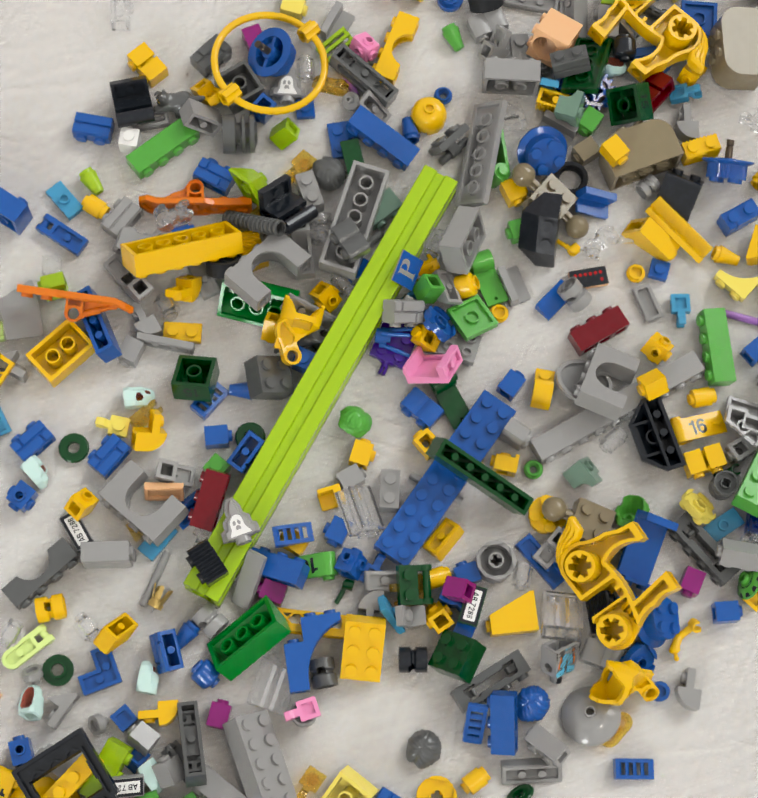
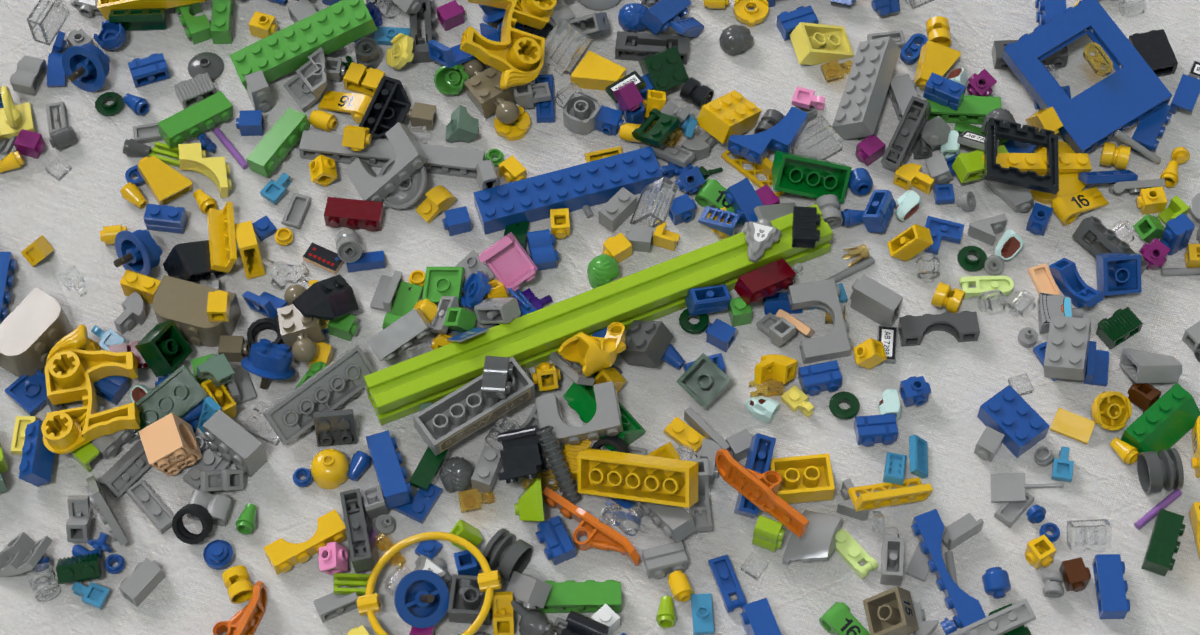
camera: 135 degrees left, 15 degrees down
(479, 476) = (545, 159): dark green brick -> none
(570, 61) = (180, 406): dark grey brick -> none
(624, 47) = (121, 395): black head -> none
(624, 462) = (423, 115): none -> dark tan brick

